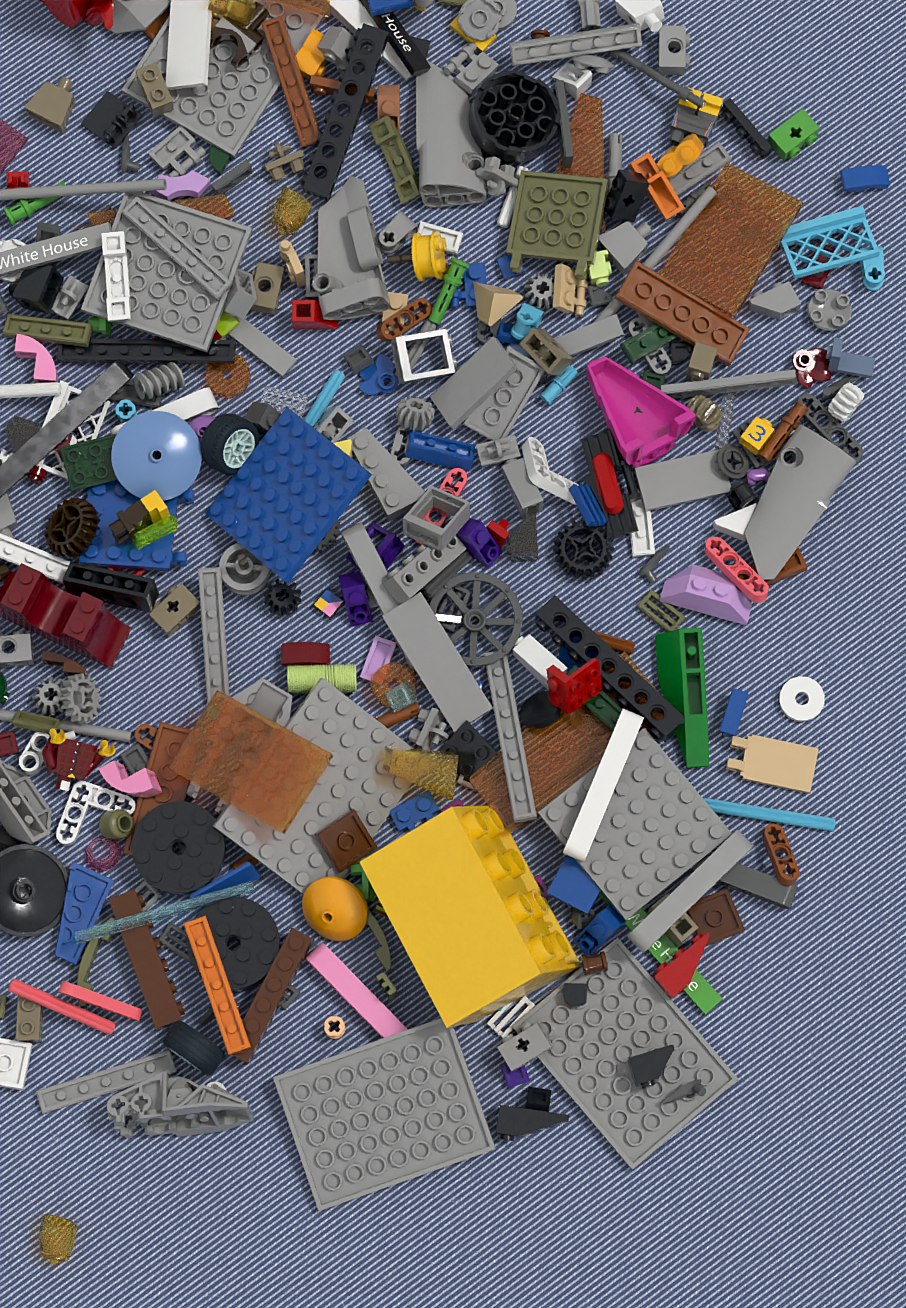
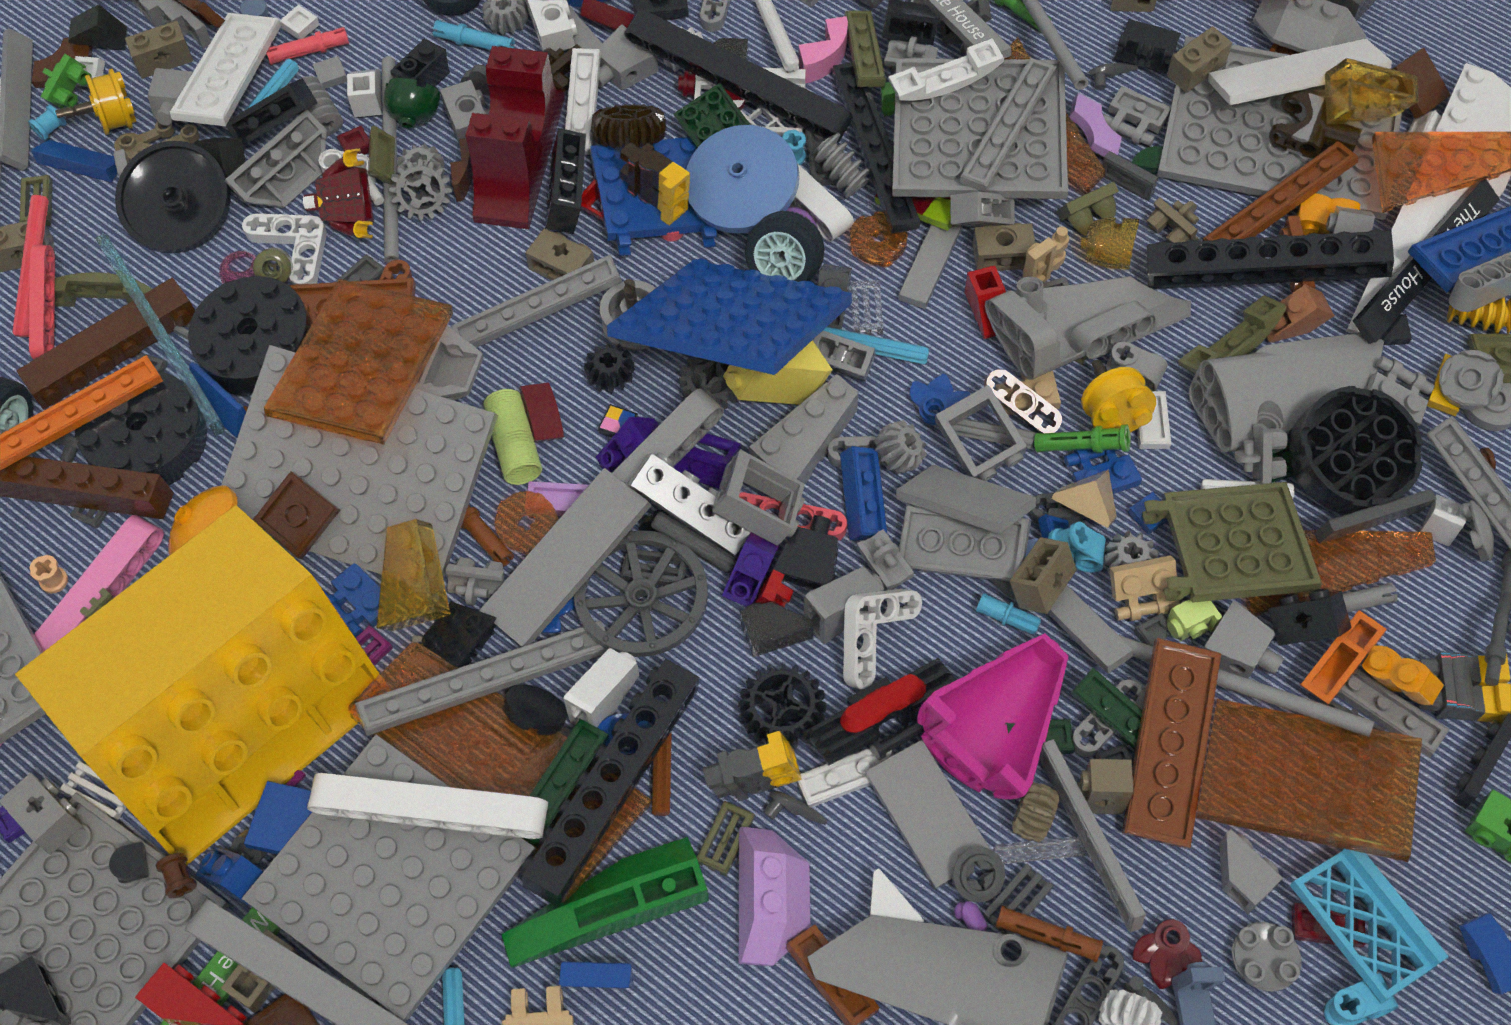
camera: 75 degrees right, 15 degrees down
(81, 908) = (186, 260): blue wing -> none
(140, 784) = (327, 261): bright pink brick -> none
(155, 531) = (645, 202): clear neon green tile -> none
(246, 208) = (1079, 211): none -> olive tile
(358, 359) = (952, 370): dark grey tile -> none
(400, 696) = (510, 531): clear light blue slope -> none
(483, 496) = (809, 555): none -> black torso
(577, 688) = (564, 731): red bracket -> none
(587, 505) = (845, 691): blue tile -> none
(628, 578) = (753, 769): none -> dark grey hips
(739, 567) = (815, 921): coral beam -> none
(741, 495) = (933, 899): black piece -> none
(757, 435) = (1030, 894): yellow brick -> none

